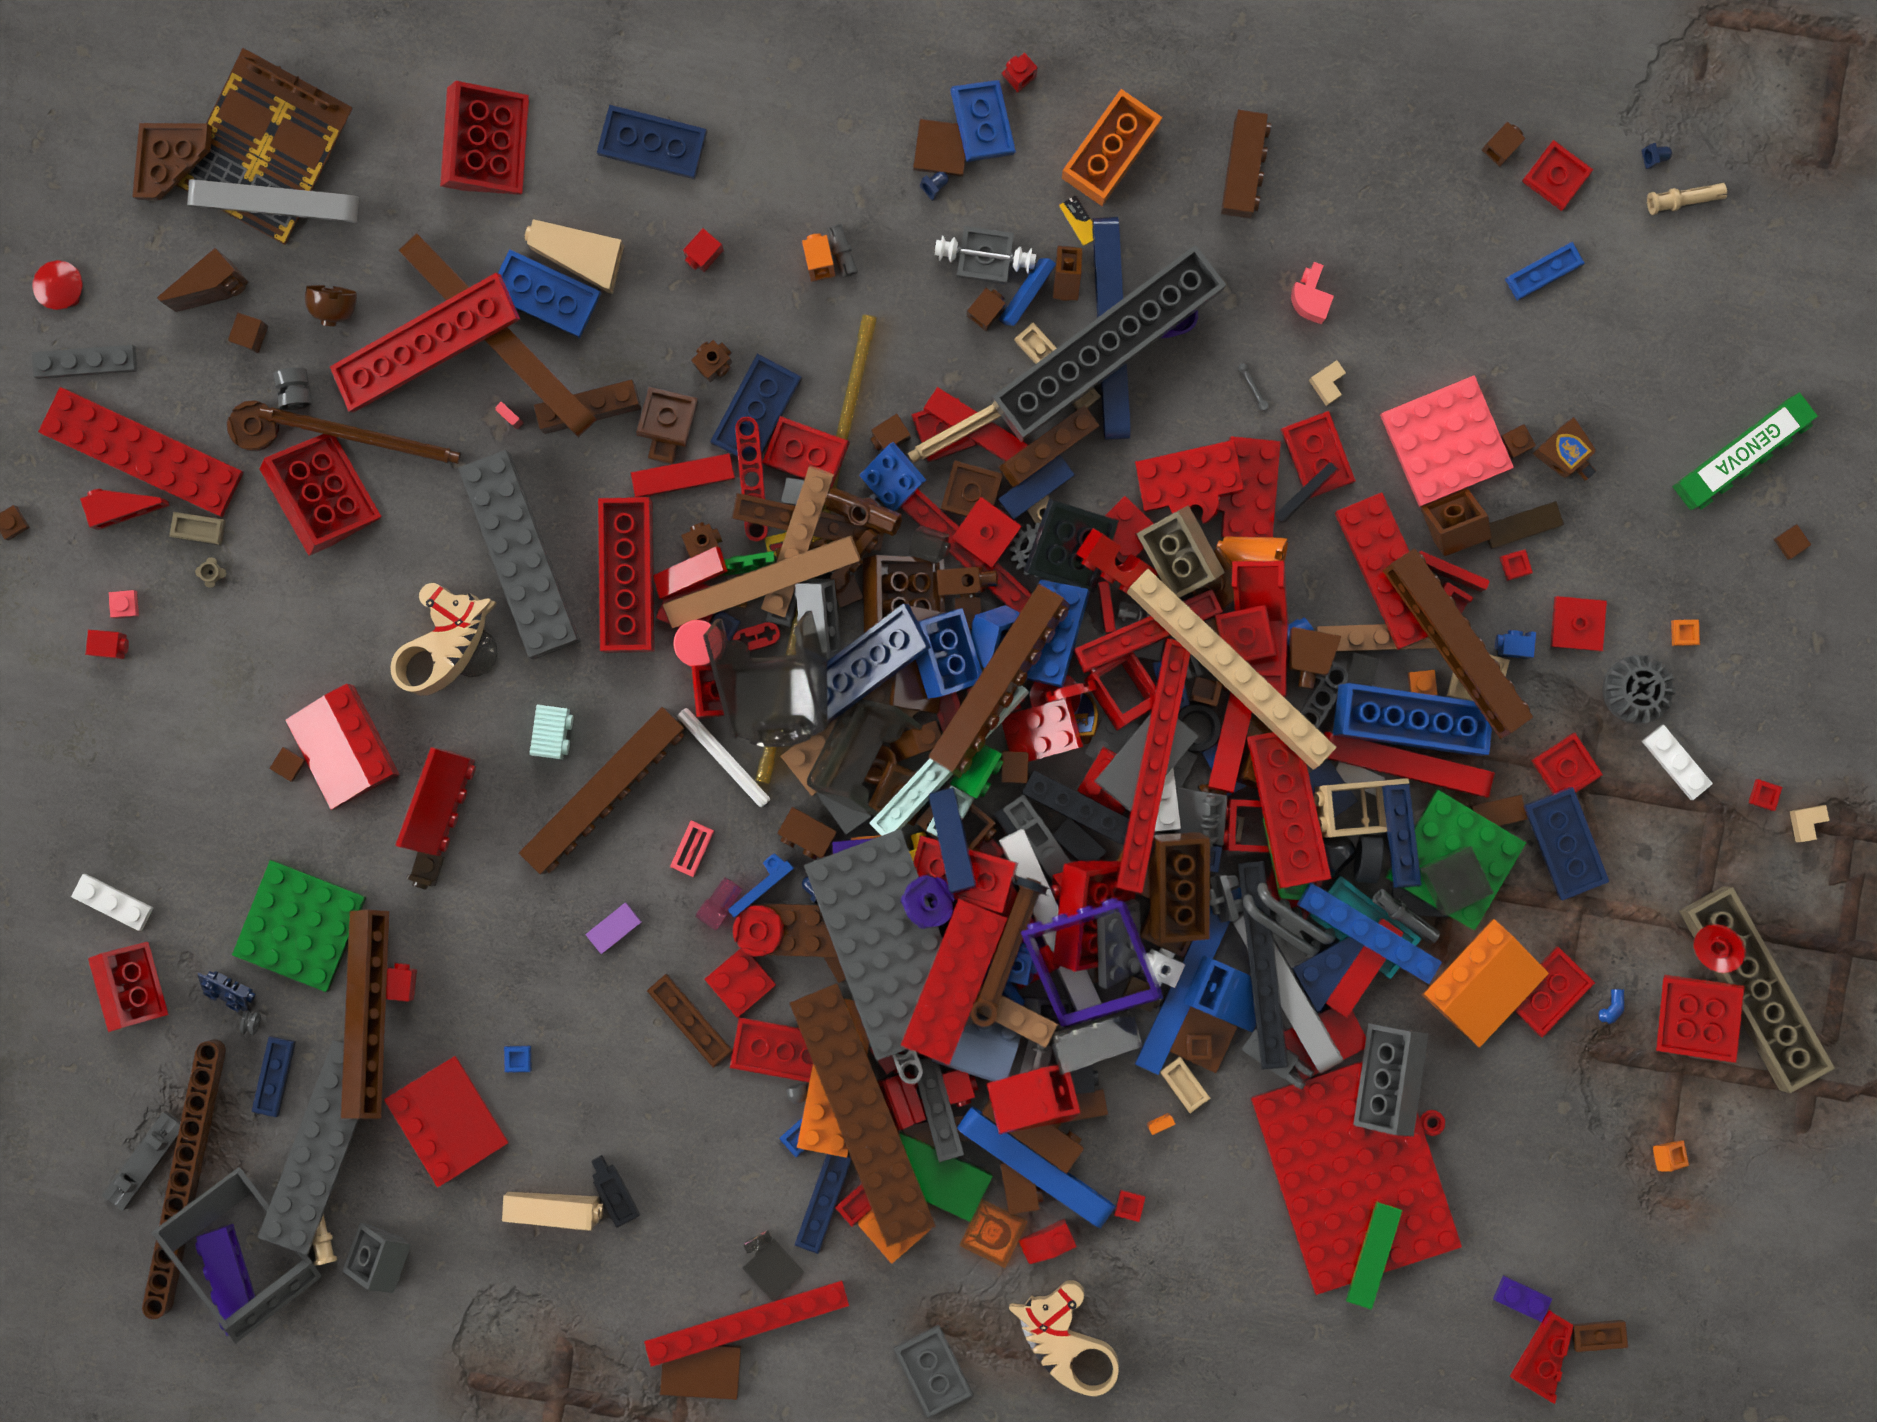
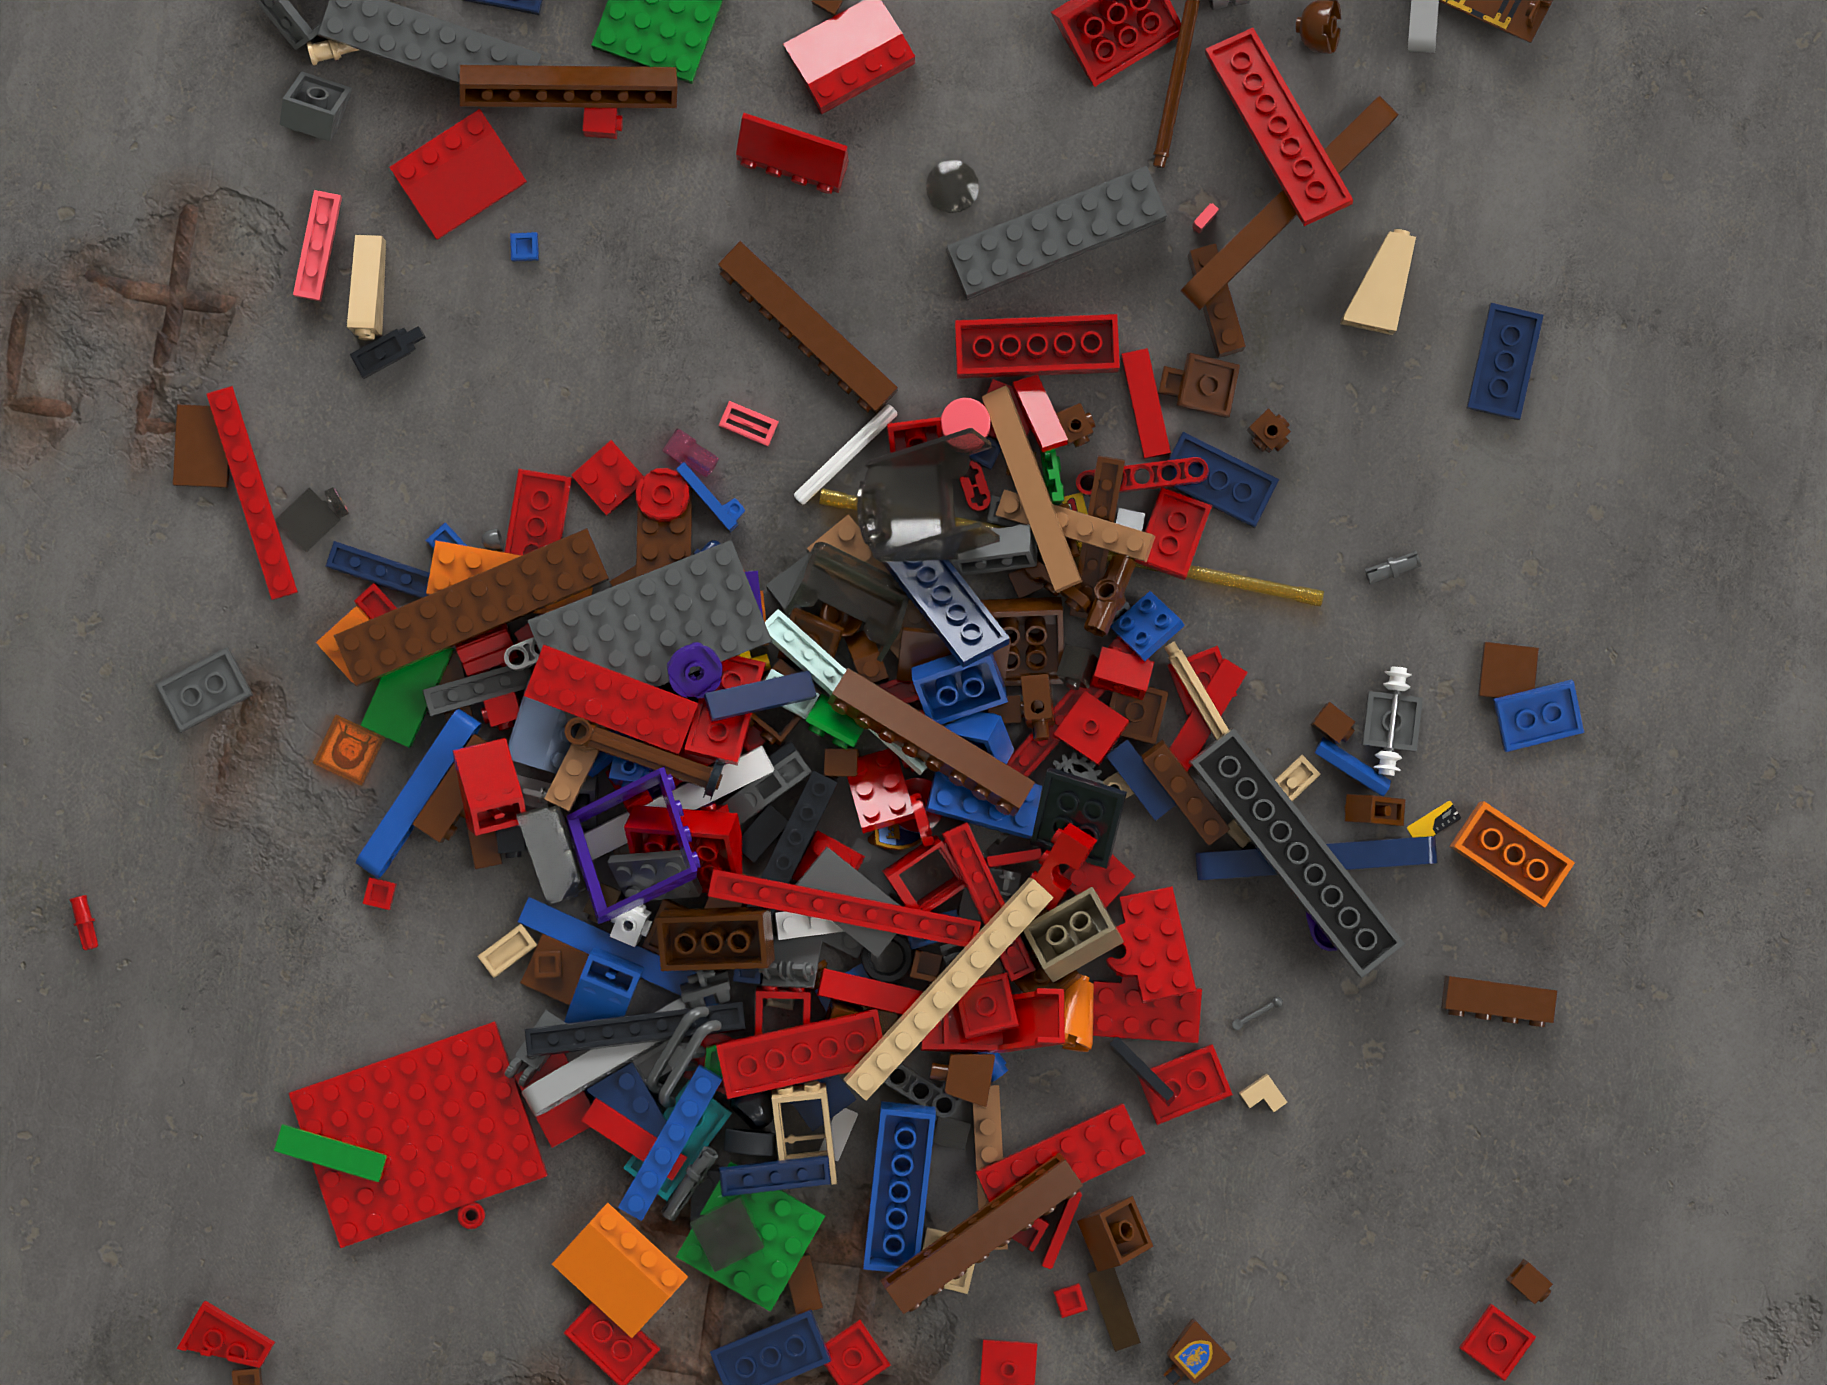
camera: 85 degrees right, 0 degrees up
(425, 870) = (720, 144): dark brown bracket -> none
(456, 634) = (960, 165): tan animal -> none
(484, 139) = (1502, 183): red slope -> none
(511, 1257) = (317, 245): none -> coral plate
(548, 294) = (1337, 255): blue plate -> none
(550, 732) = (868, 271): light aqua brick -> none
(613, 928) = (663, 343): medium lavender tile -> none
(689, 1020) = (567, 425): reddish brown tile -> none
(702, 251) = (1387, 418): red brick -> none
(807, 833) = (766, 544): reddish brown brick -> none
(818, 257) = (1383, 541): orange brick -> none
(889, 431) = (1196, 622): reddish brown brick -> none
(932, 185) = (1468, 665): dark blue piece -> none
(936, 501) = (1122, 672): none -> red brick
(1020, 71) = (1593, 754): red brick -> none
(1020, 1192) = (392, 776): reddish brown slope -> none
(1047, 1330) = (246, 809): tan animal -> none
(1048, 1242) = (340, 808): red slope -> none
(1160, 1123) = (466, 924): orange tile -> none
(1309, 301) = (1350, 1072): coral brick -> none
(1391, 1080) = (515, 1168): dark grey slope -> none
(1411, 765) = (851, 1186): red beam -> none
(1423, 682) = (940, 1200): orange plate -> none
(1446, 441) = (1203, 1223): coral plate -> none
(1515, 644) = (983, 1299): blue brick -> none
(1518, 441) = (1205, 1301): reddish brown plate -> none
(1522, 1298) = (286, 1314): dark purple plate -> none
(1544, 271) = (1391, 1329): blue tile -> none

